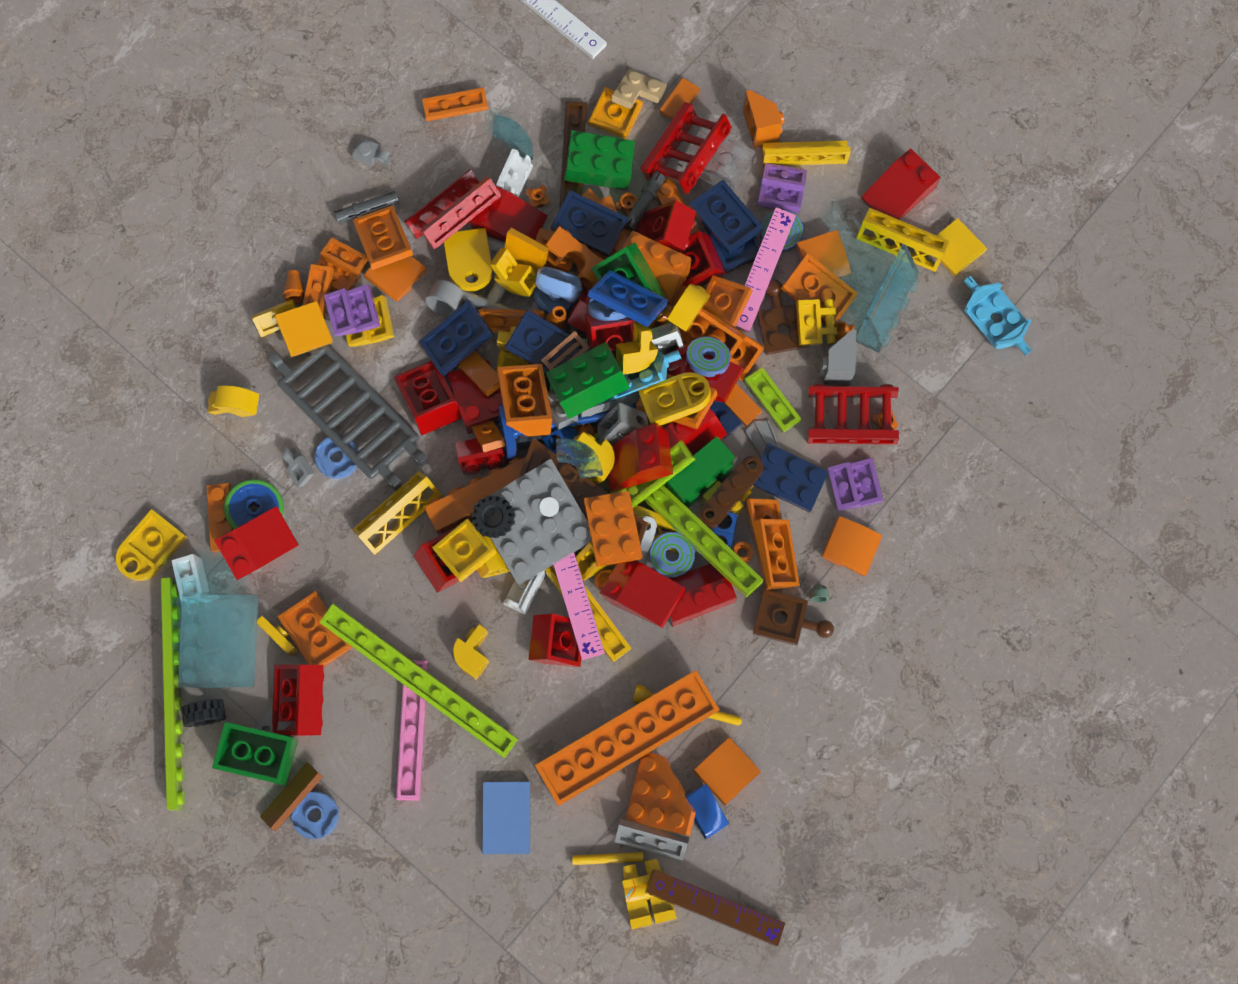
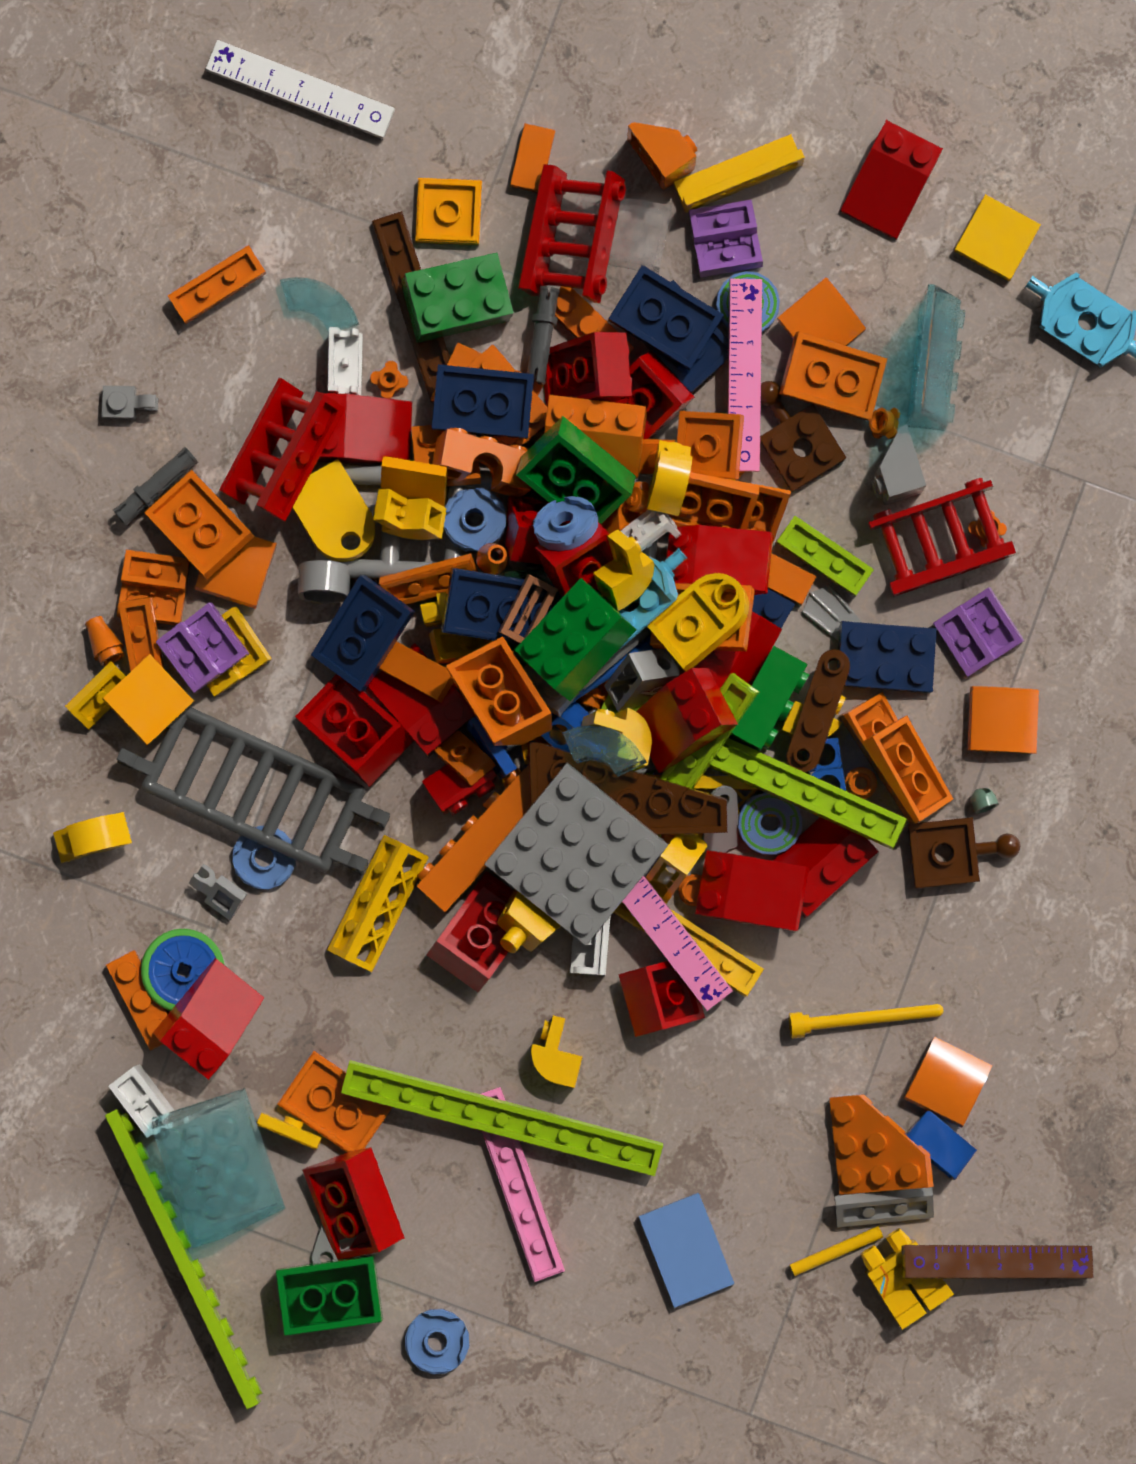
camera: 25 degrees left, 10 degrees up
(150, 546) = (63, 1074): yellow tile -> none
(203, 713) = (239, 1268): black tyre -> none
(291, 796) = (397, 1330): dark orange tile -> none
(464, 550) = (497, 927): yellow tile -> none
(479, 516) = (515, 890): black tyre -> none
(549, 506) = (589, 829): white sticker -> none
(558, 284) = (477, 507): light blue piece -> none
(612, 528) = (684, 826): orange plate -> none
(625, 198) = (515, 334): orange plate -> none
(627, 737) = (803, 1088): orange plate -> none
(628, 298) = (587, 506): blue tile -> none
(637, 85) = (466, 157): tan plate -> none
(709, 346) = (720, 520): medium blue tile -> none
(809, 322) = (837, 429): yellow plate -> none
(902, 233) = (921, 251): yellow fence -> none

